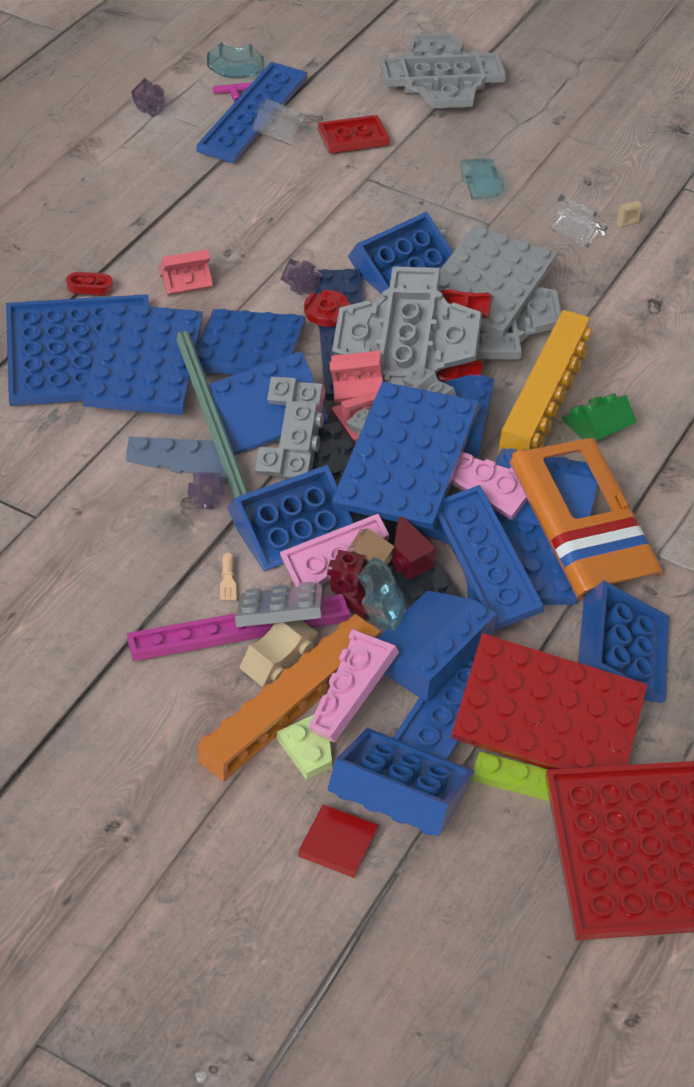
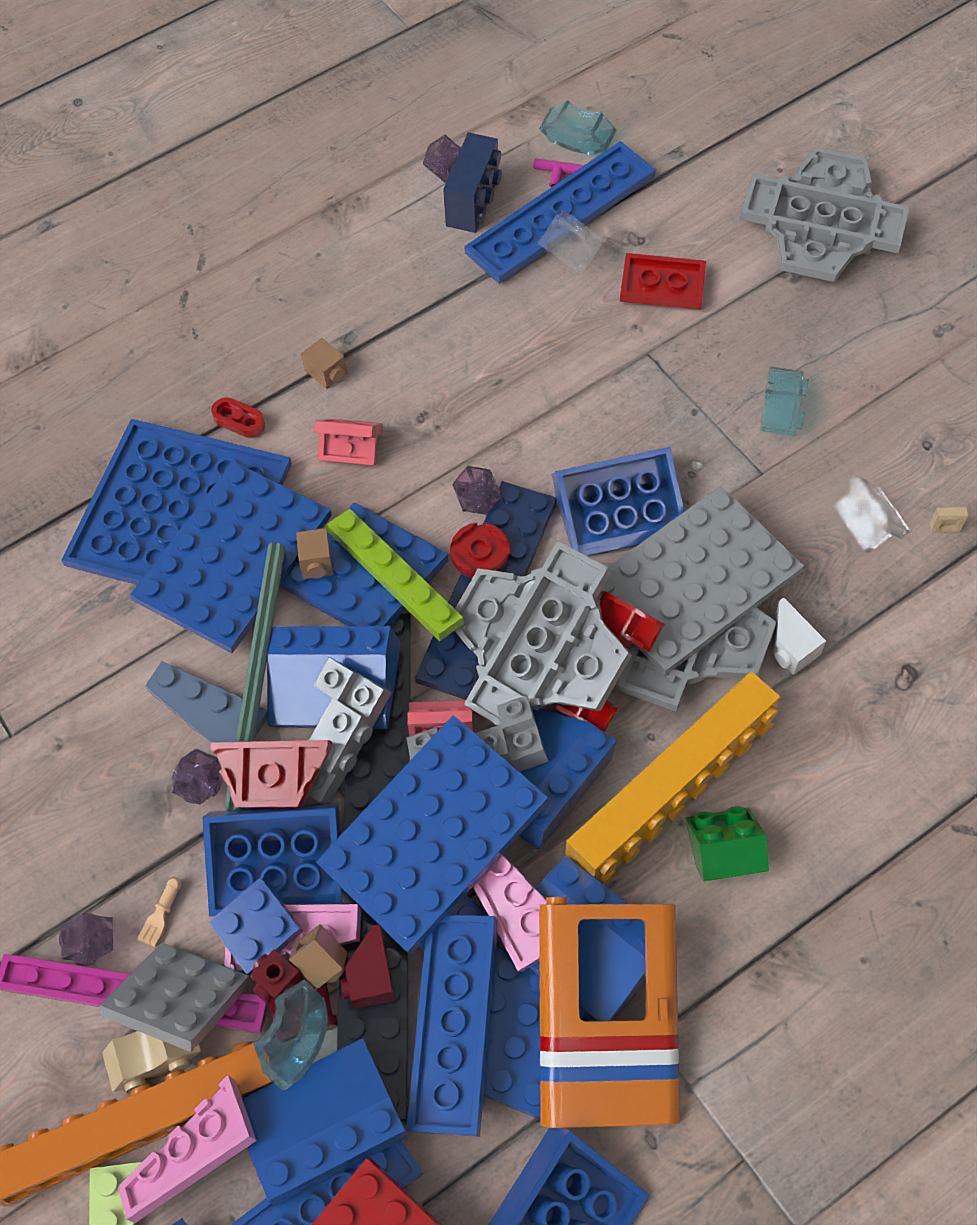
camera: 30 degrees right, 15 degrees up
(136, 235) = (324, 363): none -> medium nougat brick
(181, 104) = (472, 182): none -> dark blue brick
(186, 601) = (86, 938): none -> clear purple brick
(212, 334) = (314, 553): none -> medium nougat brick
(263, 459) = (270, 771): none -> wing
(277, 331) = (395, 575): none -> lime plate
(308, 553) = (255, 924): none -> plate
(355, 374) = (454, 673): coral bracket -> none
(573, 297) = (794, 639): none -> white slope

